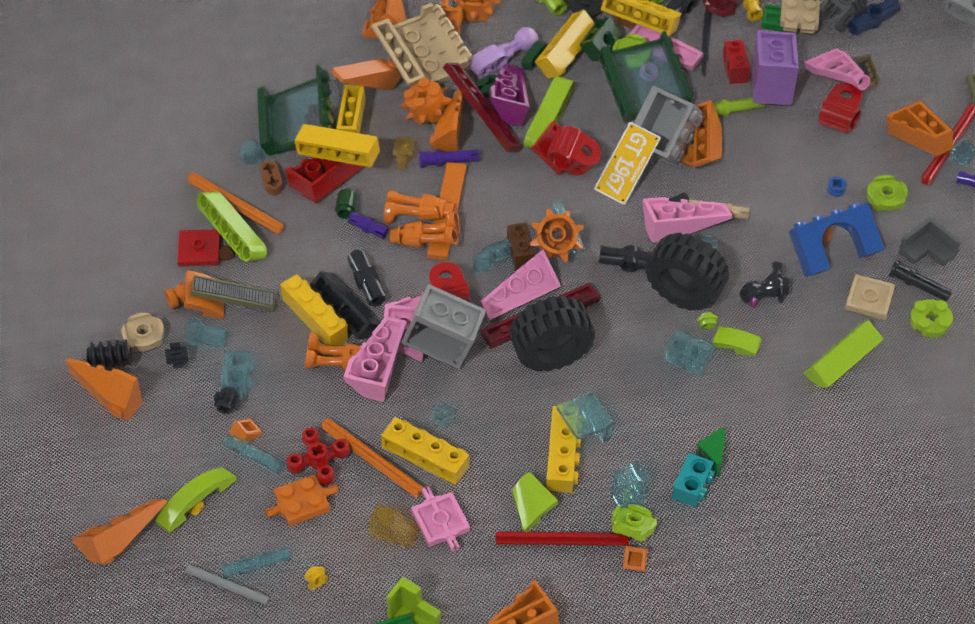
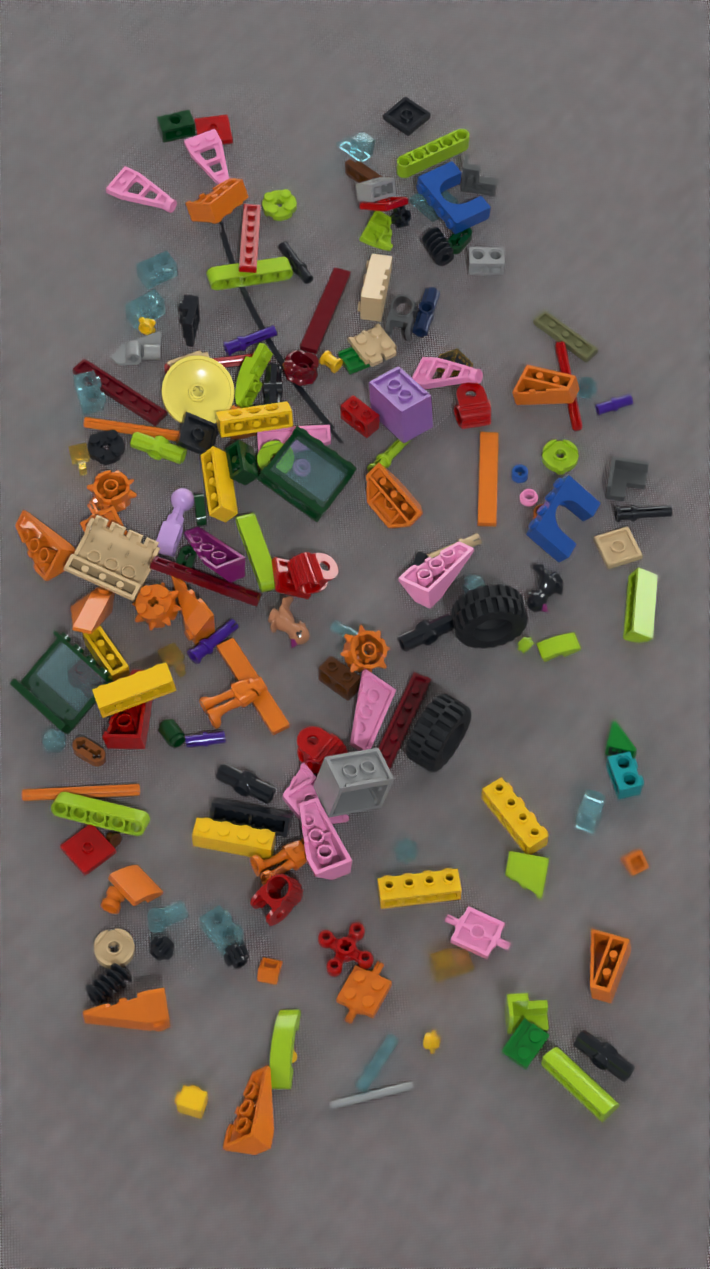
camera: 40 degrees left, 5 degrees up
(84, 485) = (191, 1101): none -> yellow brick
(233, 293) = (159, 867): tile -> none
(246, 450) = (298, 982): clear light blue pin -> none
(309, 380) = (271, 894): none -> red piece
(373, 458) = (369, 921): orange axle -> none
(418, 233) = (249, 724): orange piece -> none
(485, 258) = (323, 700): clear light blue slope -> none
(517, 175) = (284, 621): none -> nougat animal
(561, 538) = (573, 884): red axle -> none
(586, 417) = (514, 780): clear light blue bracket -> none
(627, 163) = (360, 556): yellow sticker -> none
(633, 522) = (622, 837): lime plate -> none
(671, 120) = (366, 506): light grey container -> none
(685, 351) = (533, 674): clear light blue brick -> none
(803, 174) = (488, 479): none -> orange tile
(825, 207) = (528, 493): none -> bright pink plate
(937, 309) = (673, 526): lime plate -> none

